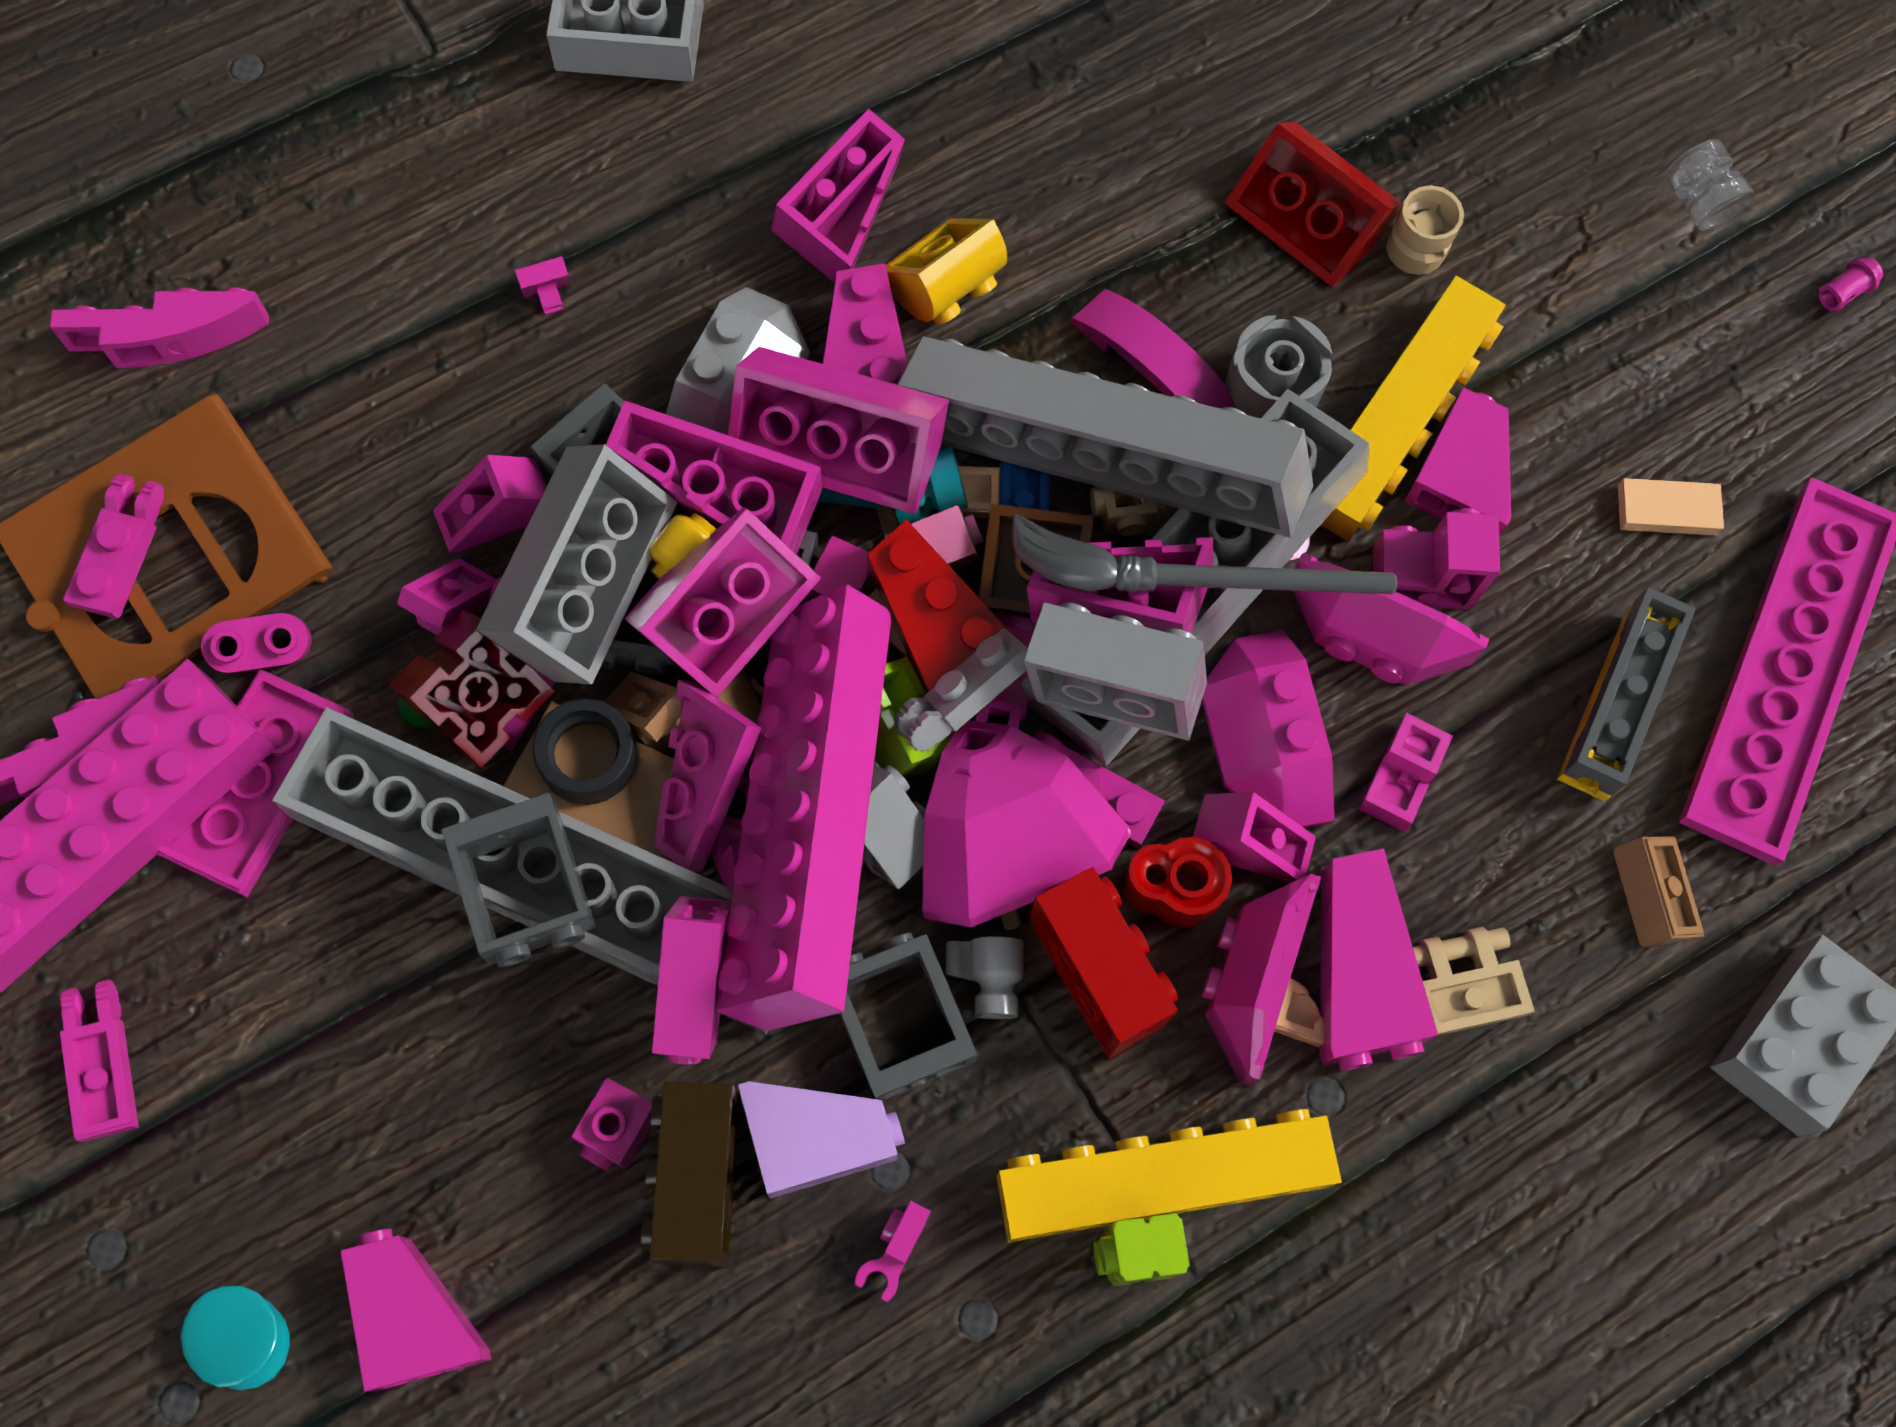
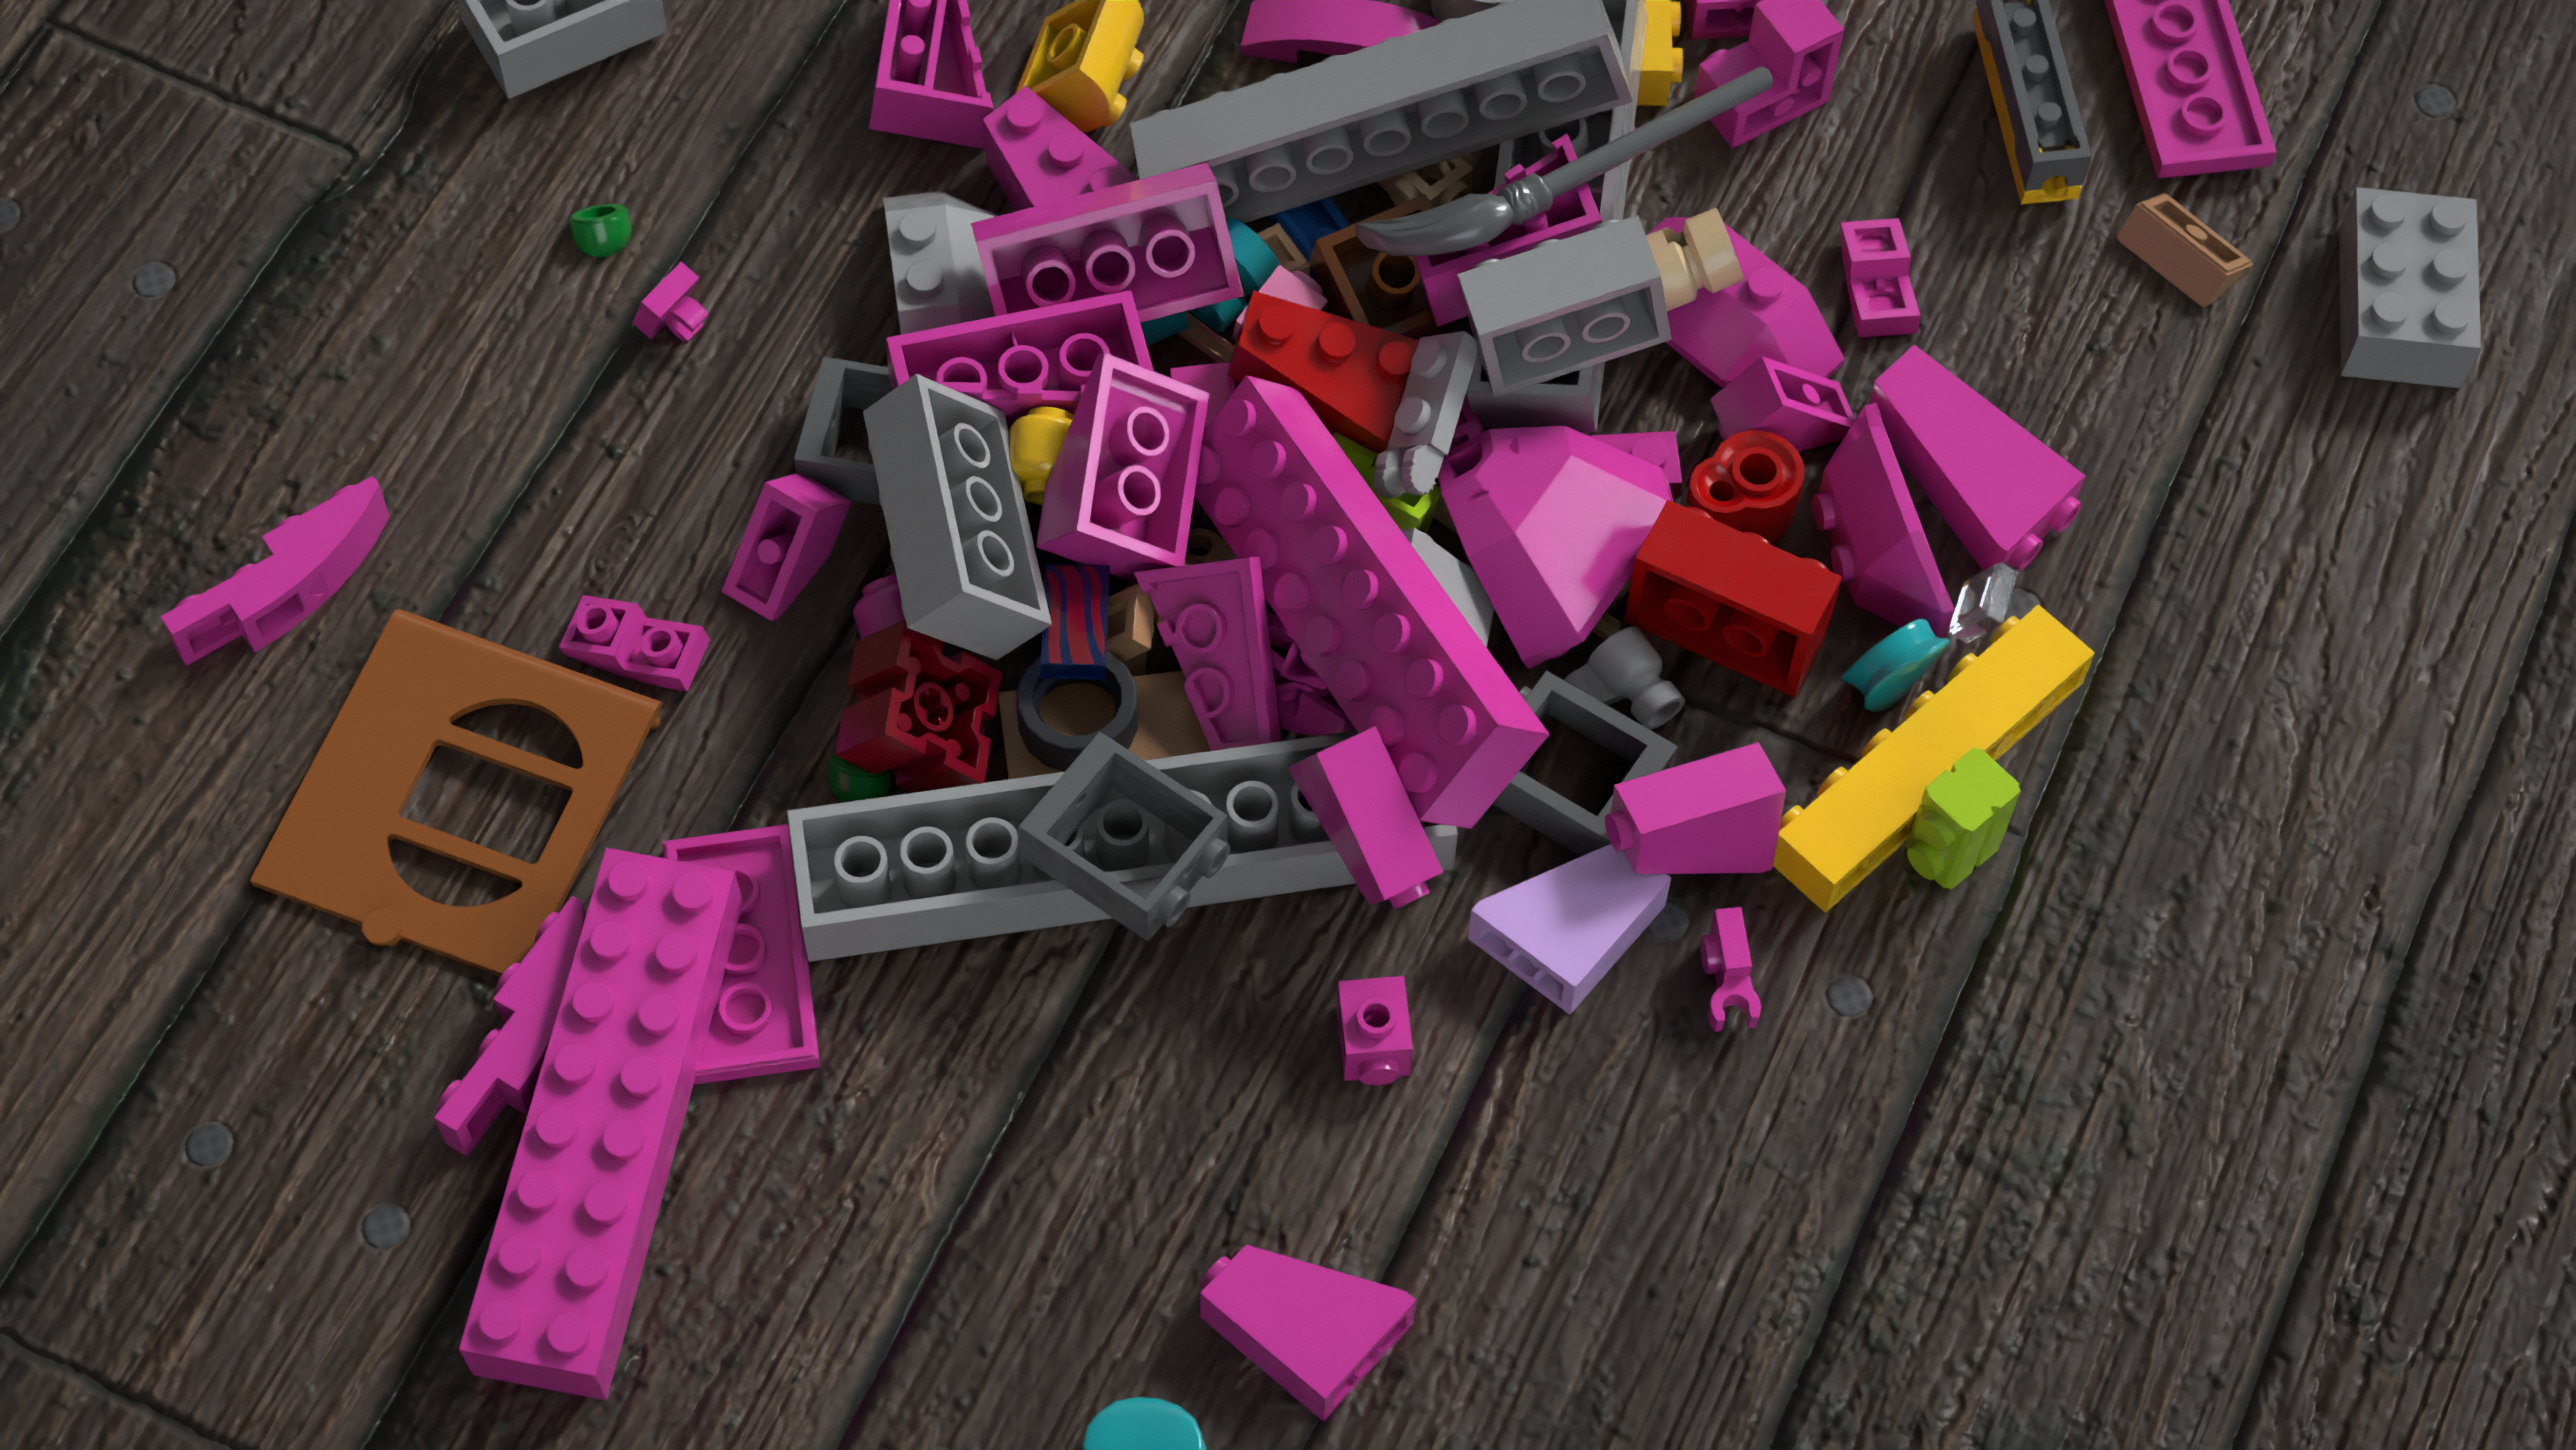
camera: 30 degrees left, 10 degrees down
(97, 1065) = (800, 1303): dark pink hinge -> none
(115, 548) = (416, 818): dark pink hinge -> none
(255, 643) = (643, 813): dark pink plate -> none
(348, 513) = (628, 644): none -> dark pink slope
(445, 593) = (816, 663): dark pink slope -> none
(547, 205) = (601, 229): none -> green piece
(619, 689) = (1079, 618): none -> tile
(692, 1175) = (1494, 1014): dark brown brick -> none
(942, 1124) = (1700, 816): none -> dark pink slope
(1188, 1092) = (1895, 665): none -> teal piece
(1249, 685) = (1695, 258): none -> tan wheel
(1293, 1081) = (1983, 602): none -> clear tile
(1300, 1016) = (1951, 550): light nougat tile -> none
(1387, 632) = (1762, 154): dark pink wedge -> none
(1475, 996) = (2095, 427): tan plate -> none

